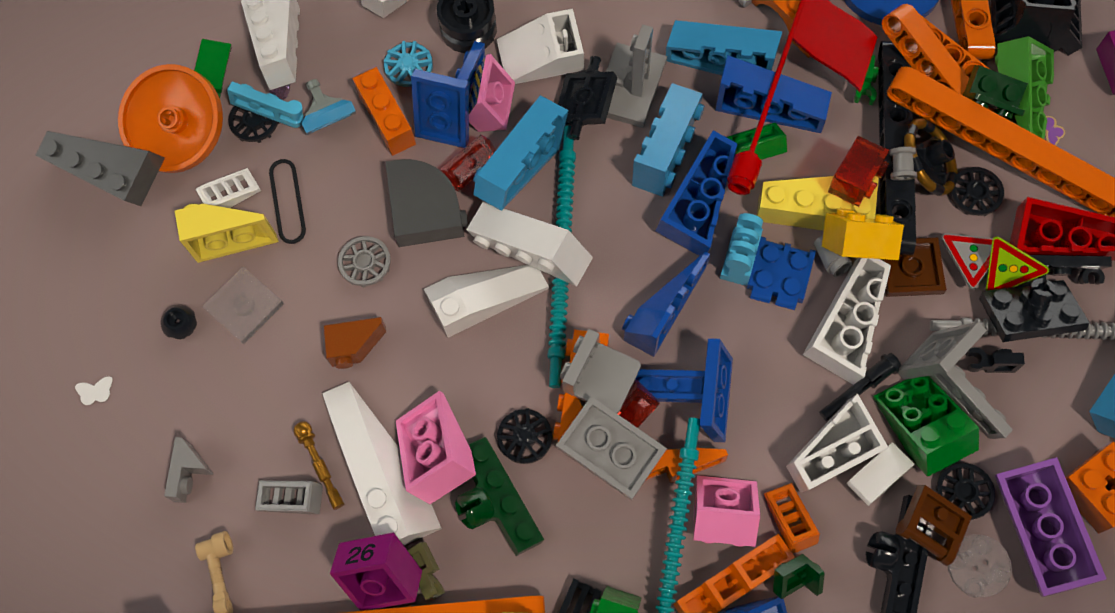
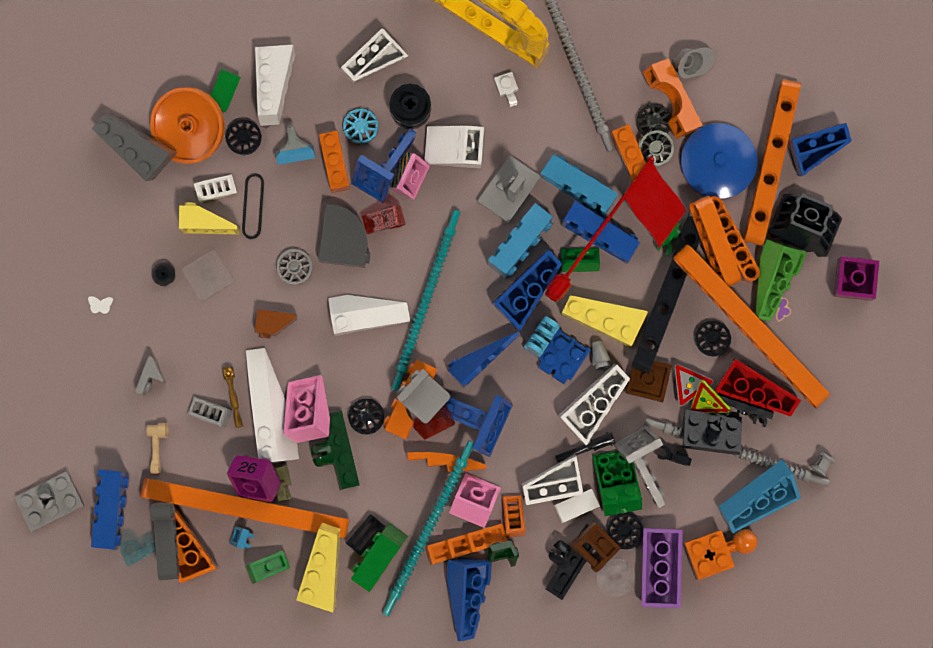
camera: 10 degrees right, 15 degrees up
(266, 104) = (255, 134): medium azure plate -> none
(521, 154) = (416, 229): dark azure wedge -> none
(531, 242) = (404, 291): white wedge -> none
(587, 97) = (474, 194): black plate -> none
(611, 448) = (415, 444): light grey plate -> none
(858, 171) = (631, 310): clear red brick -> none
(858, 237) = (613, 358): yellow brick -> none
(903, 163) = (661, 314): light grey bush -> none
(931, 156) = (687, 309): black piece -> none
(995, 91) = (746, 279): dark green bracket -> none

